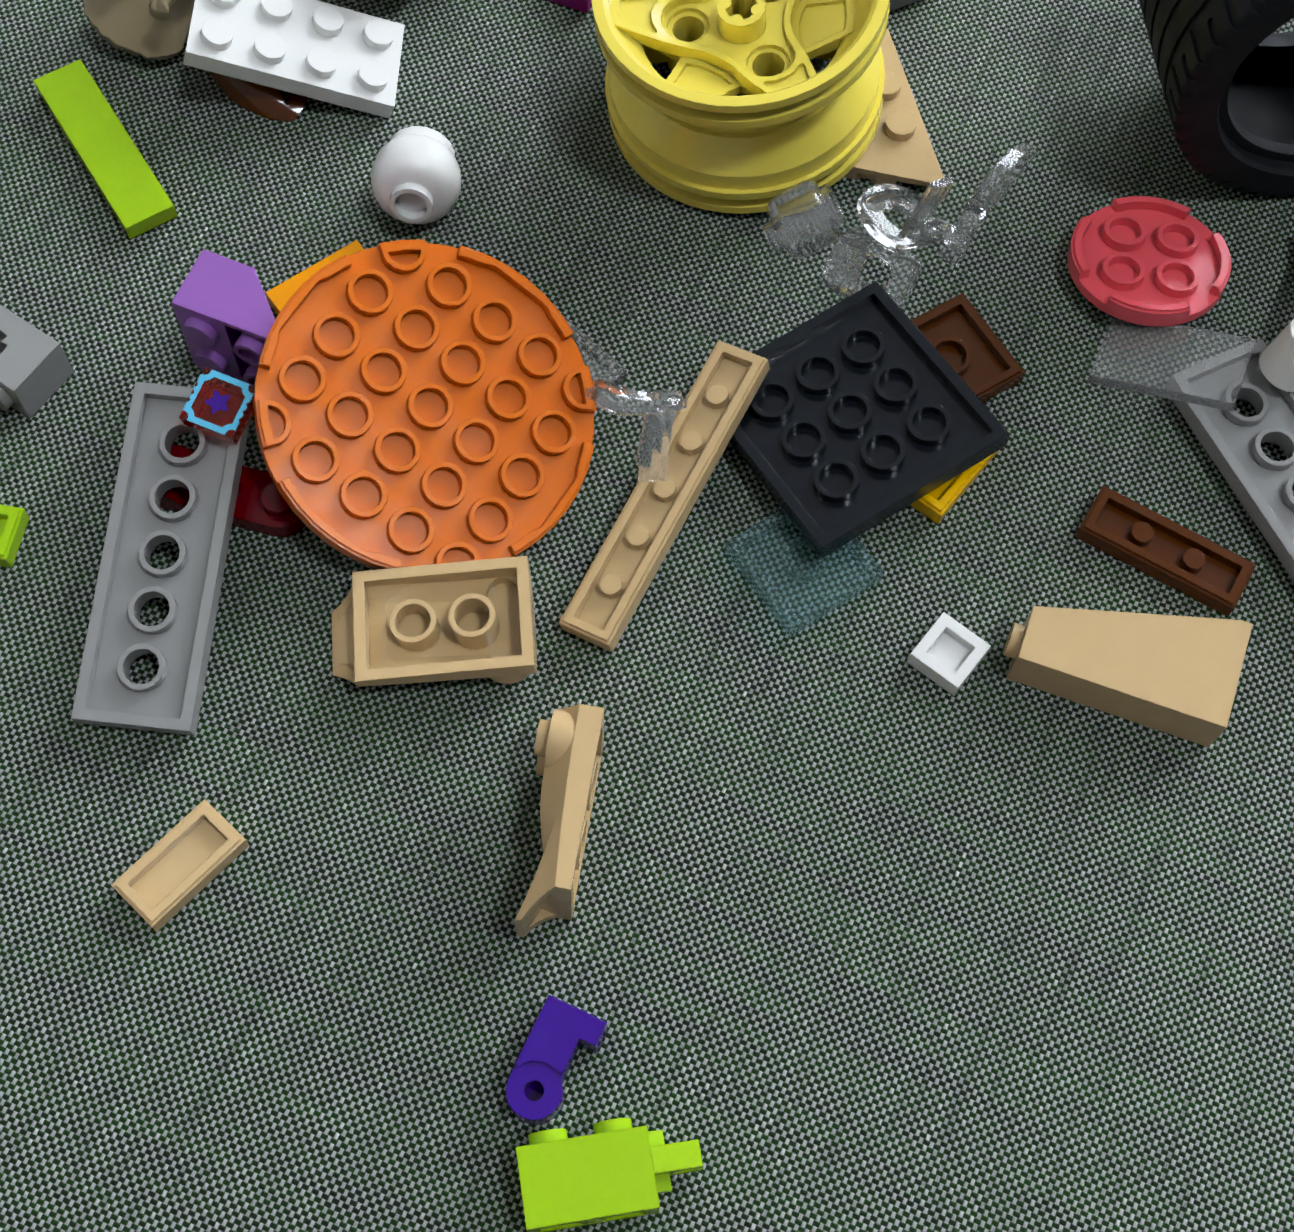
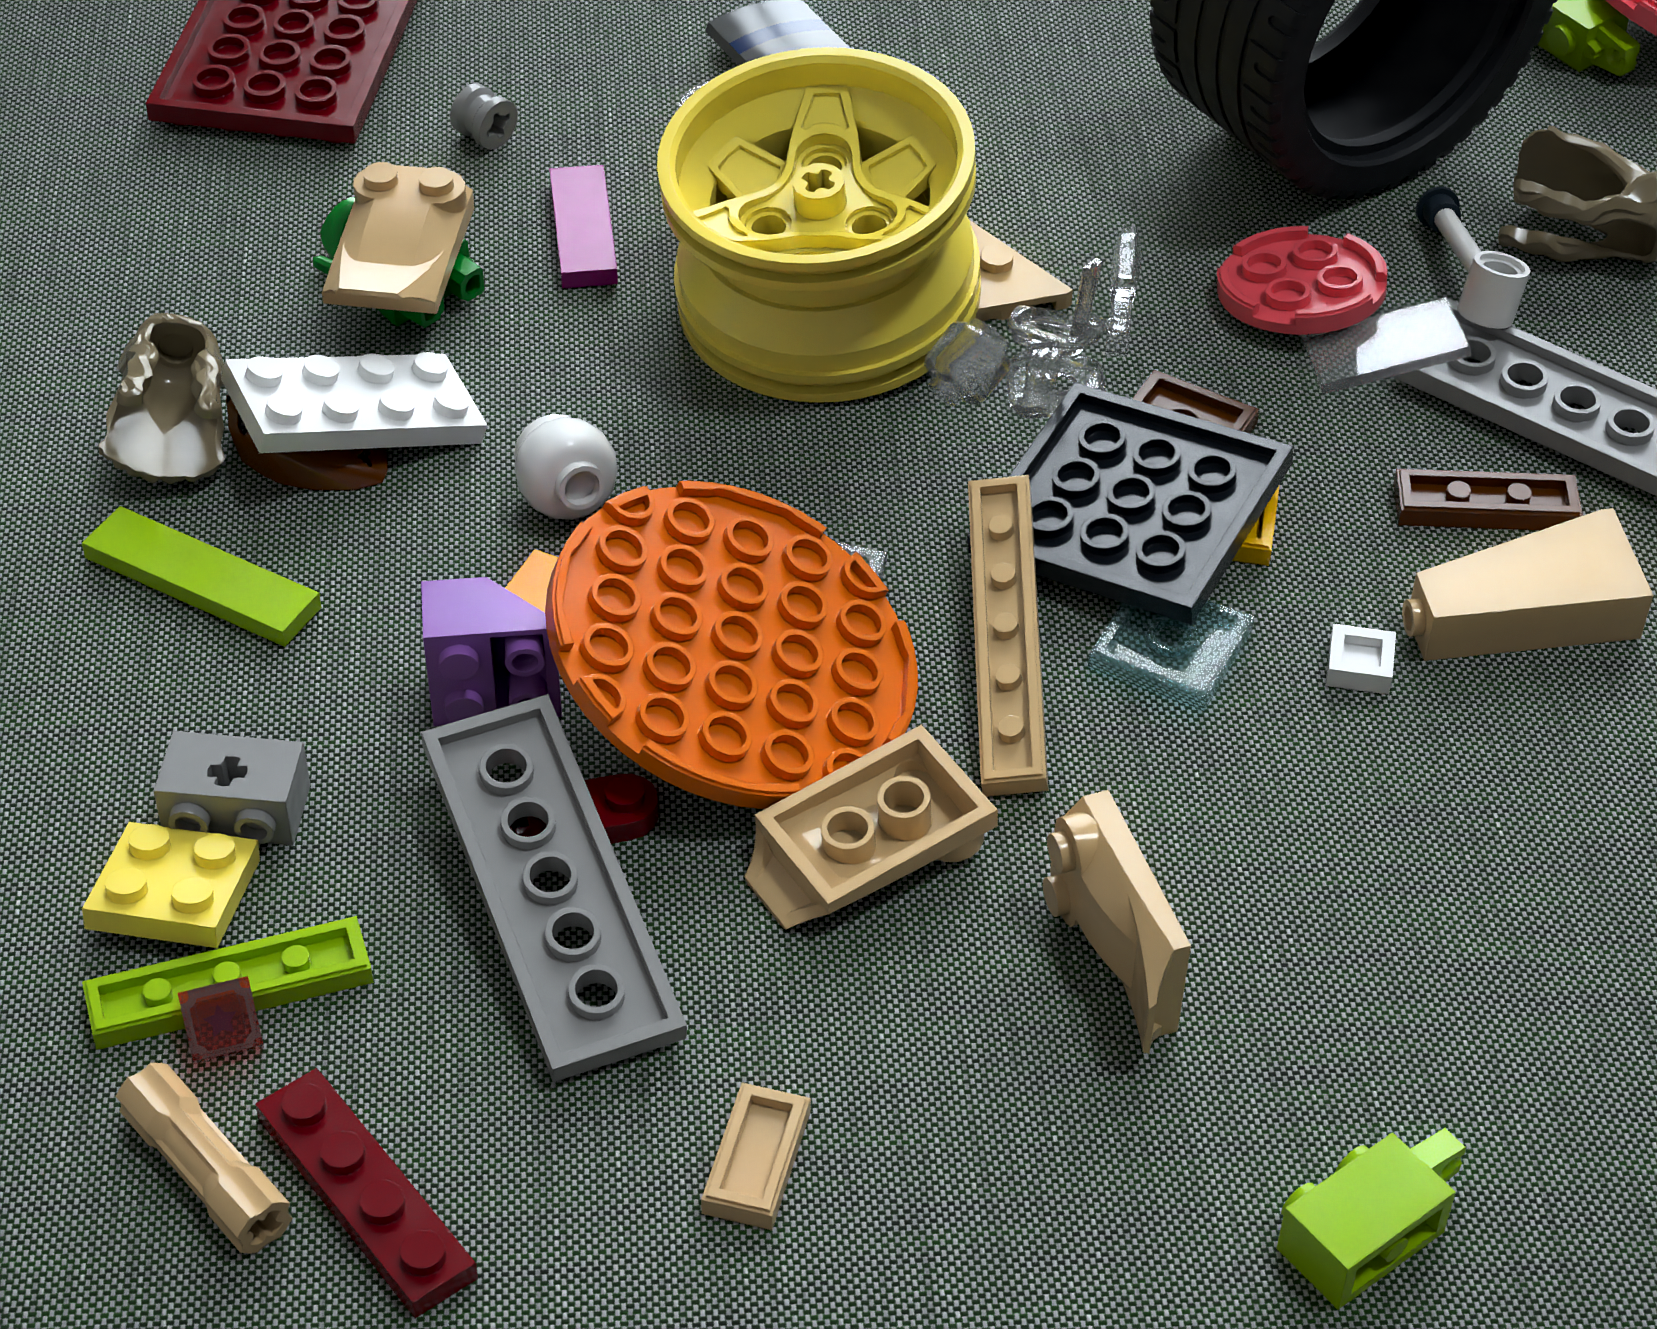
camera: 25 degrees left, 20 degrees down
(219, 405) = (531, 711): clear red tile -> none
(538, 1075) = (1247, 1123): dark purple leg -> none
(658, 417) = (930, 557): clear piece -> none

